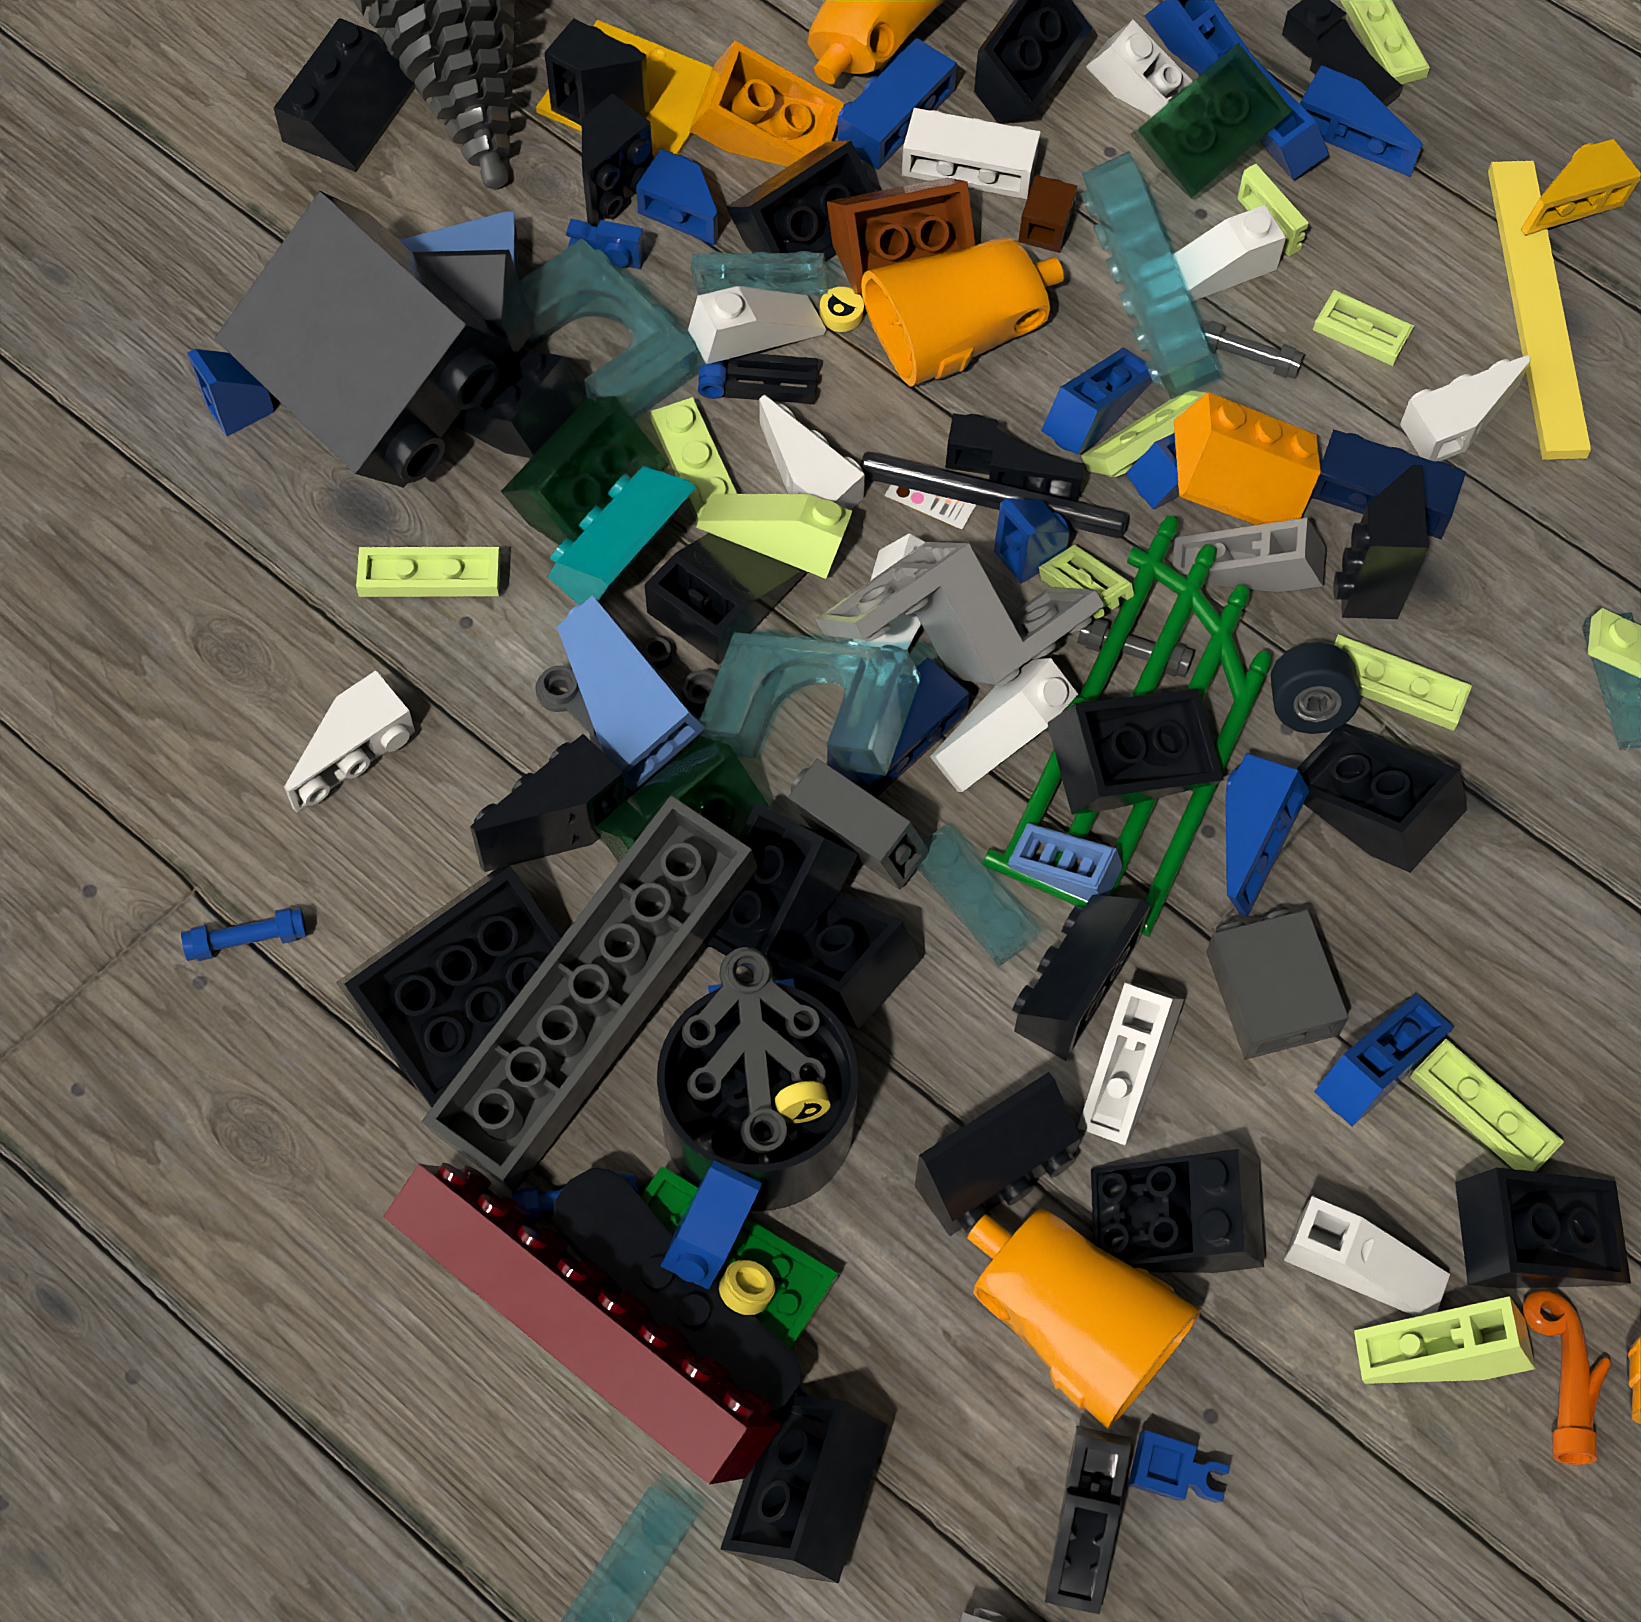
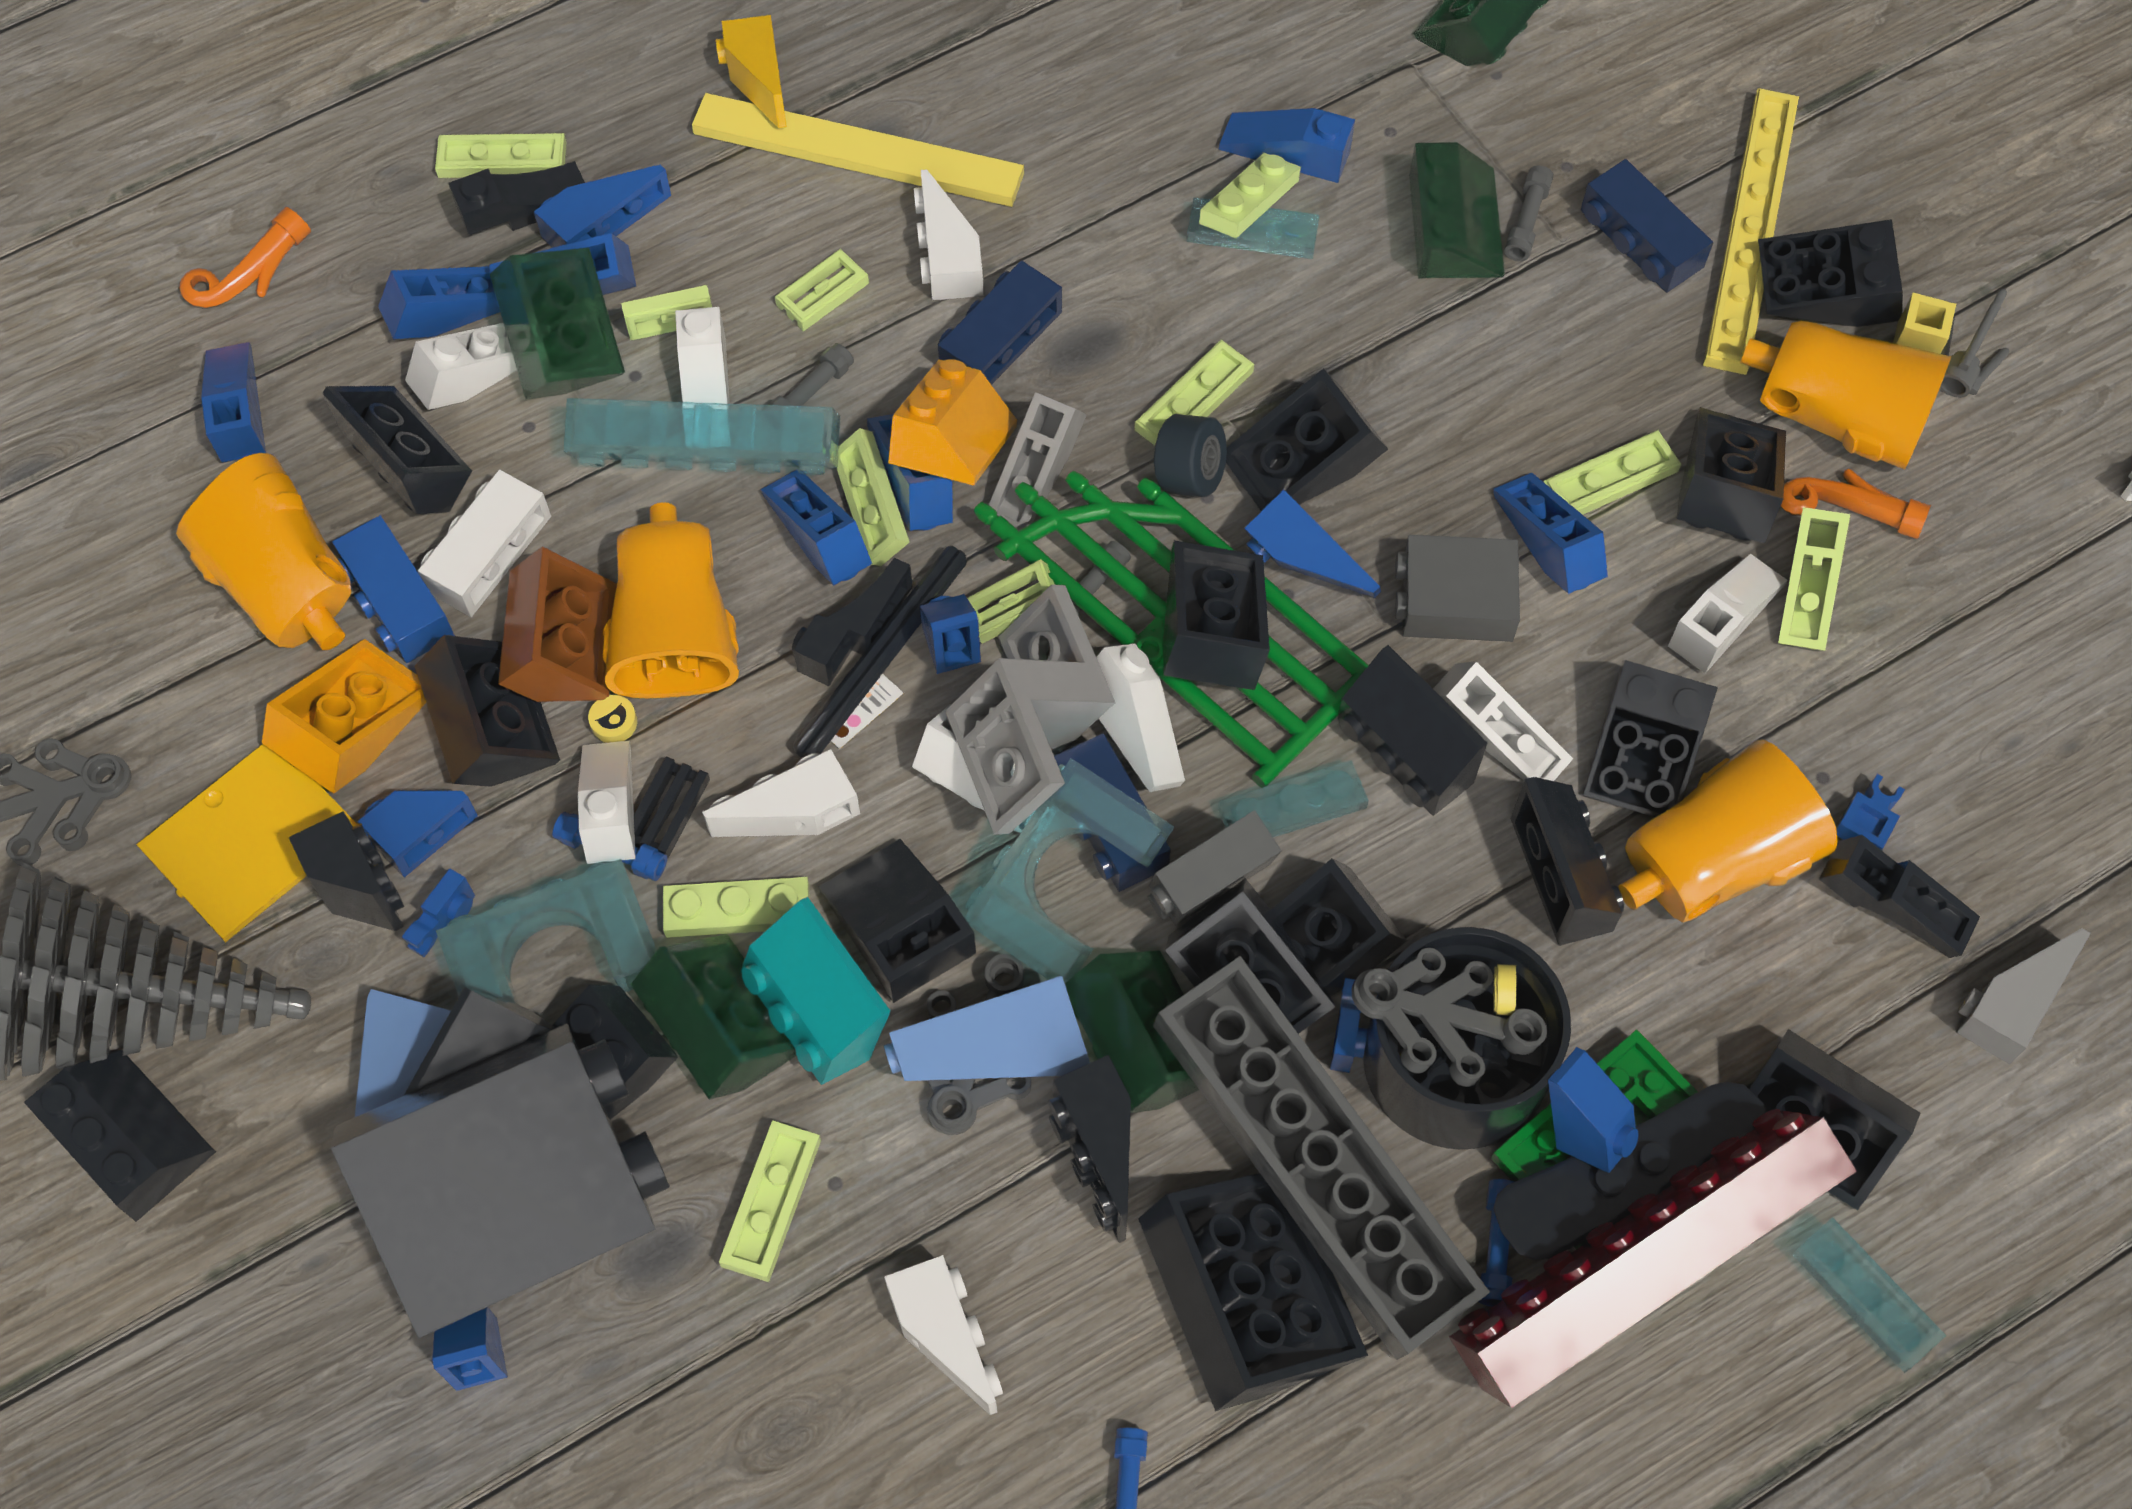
camera: 70 degrees left, 0 degrees up
(590, 66) = (239, 854): black slope -> none
(746, 1287) = (1648, 1104): light yellow tile -> none
(782, 272) = (547, 775): clear light blue plate -> none
(782, 526) = (857, 843): yellowish green slope -> none
(1047, 213) = (587, 499): reddish brown brick -> none
(1060, 877) = (1294, 690): medium blue slope -> none
(1385, 551) = (1087, 342): black slope -> none

